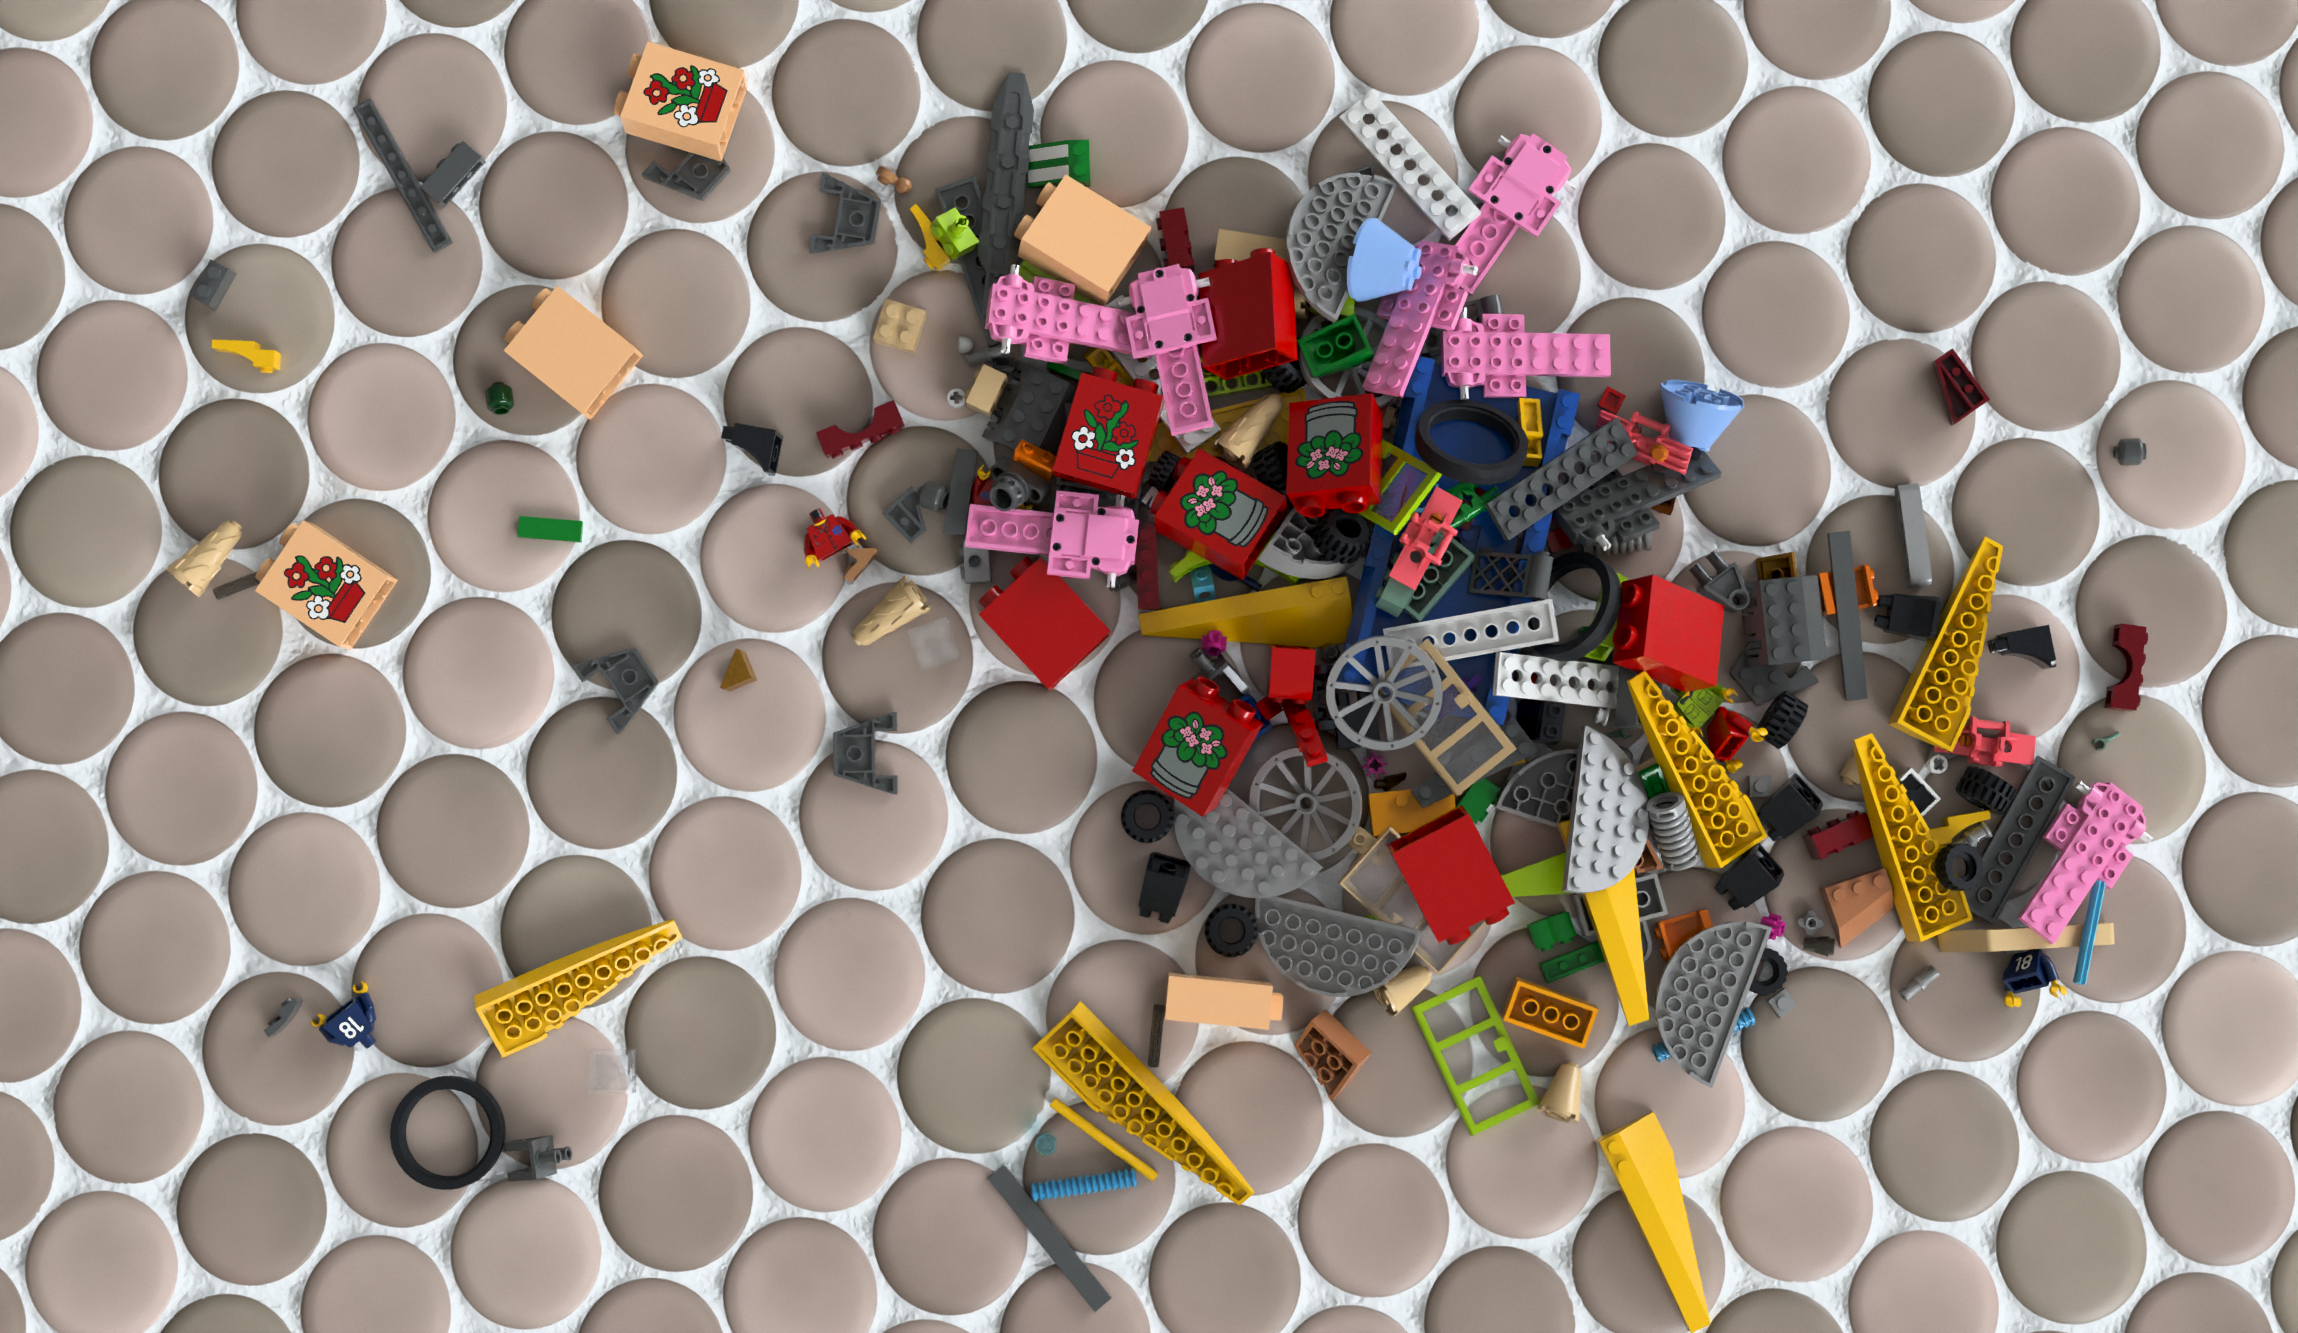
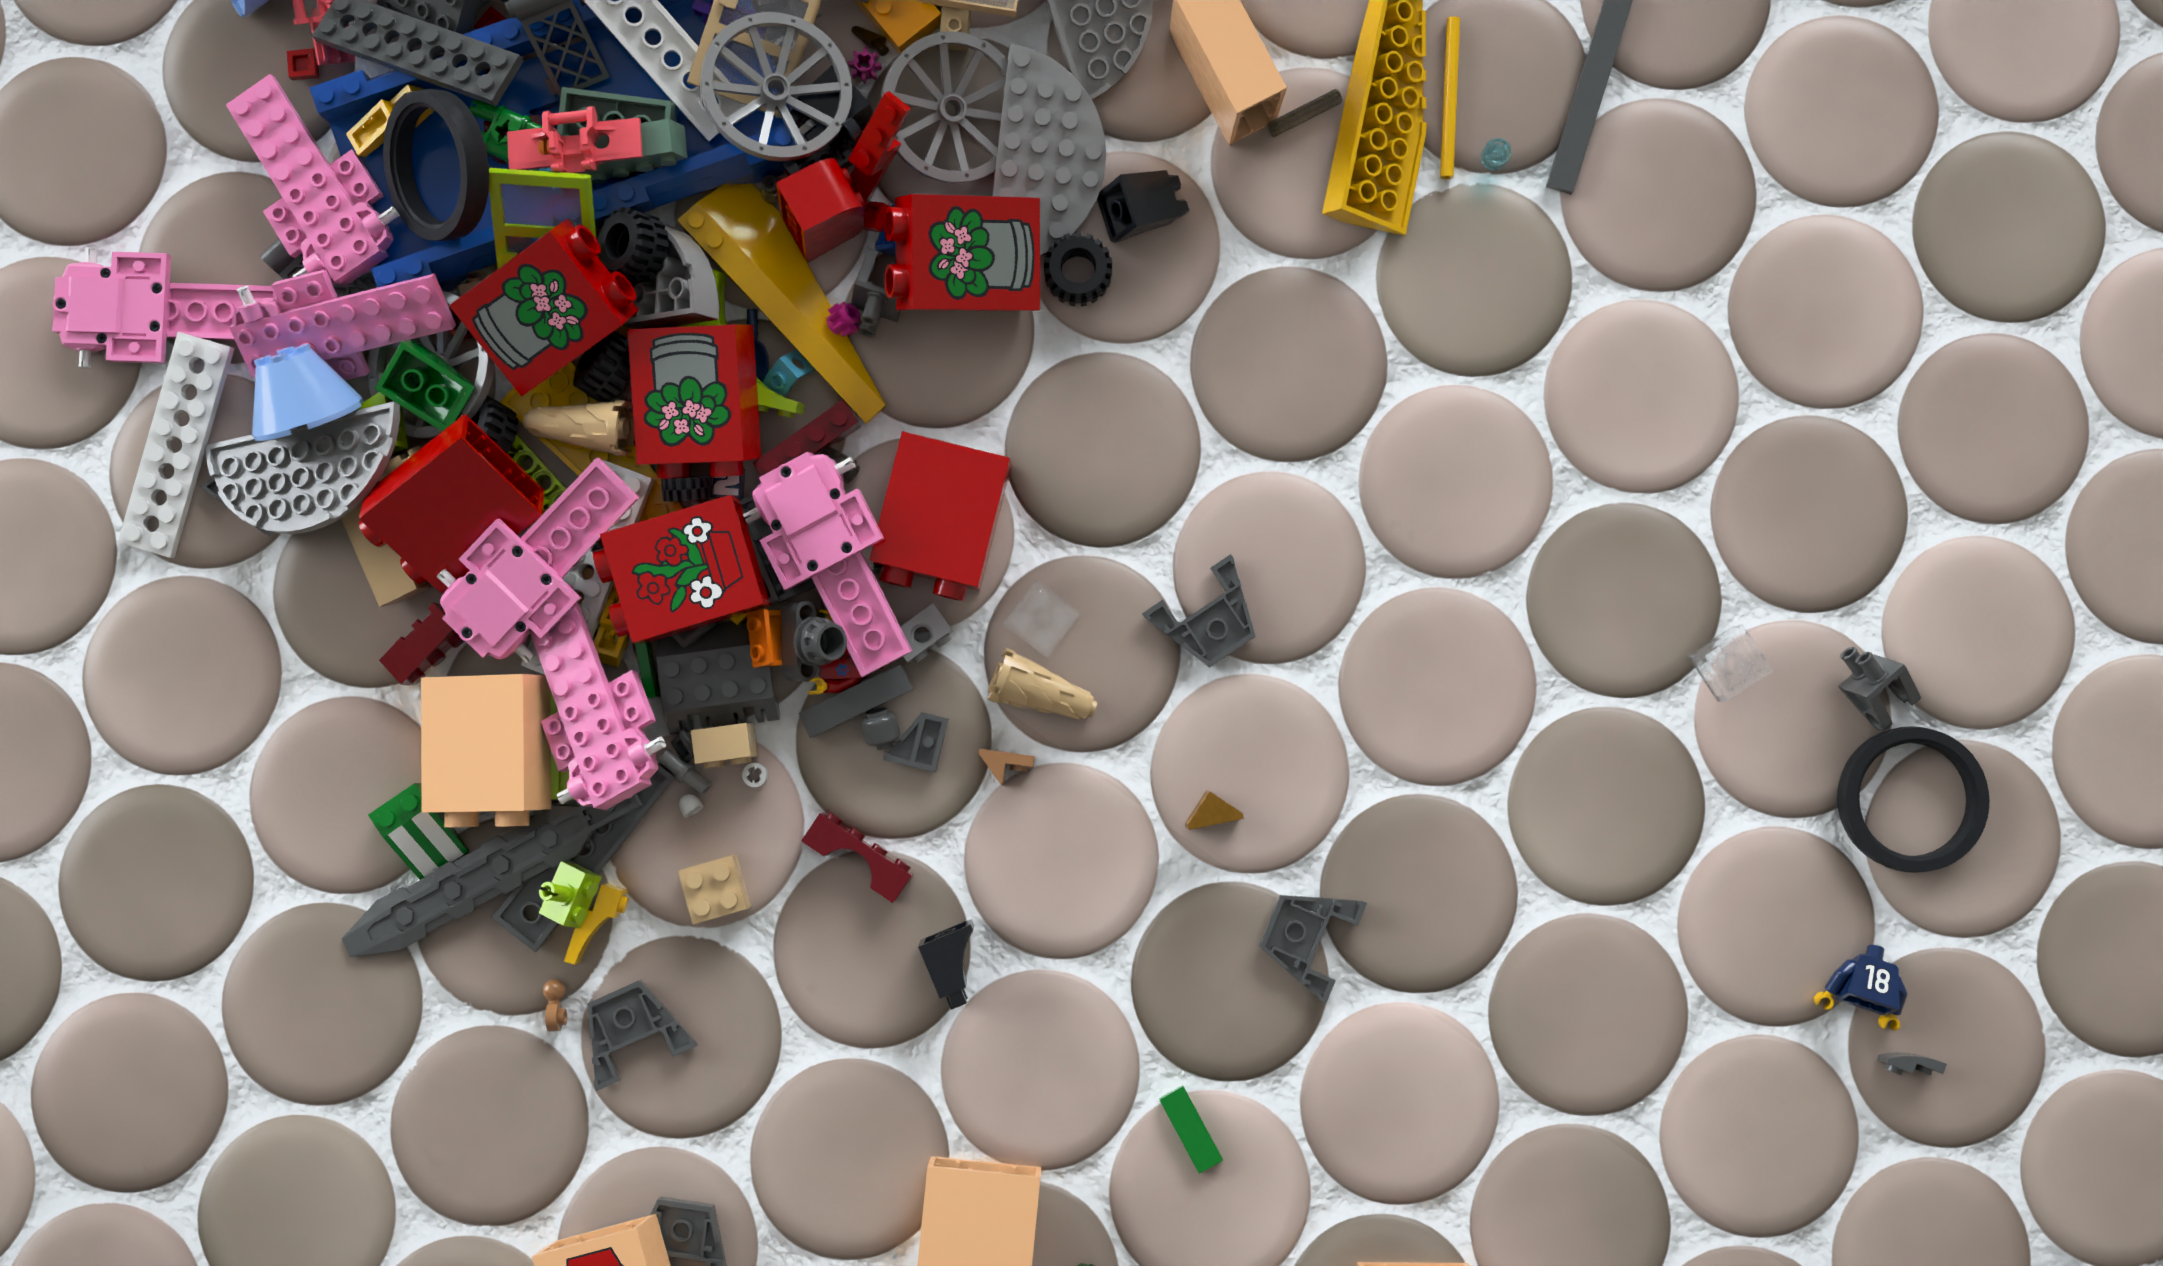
camera: 125 degrees left, 0 degrees up
(544, 998) = (1699, 790): yellow wedge -> none
(828, 537) = (999, 813): red torso -> none
(1083, 1185) = (1511, 86): dark azure piece -> none
(1231, 911) = (1144, 81): black tyre -> none

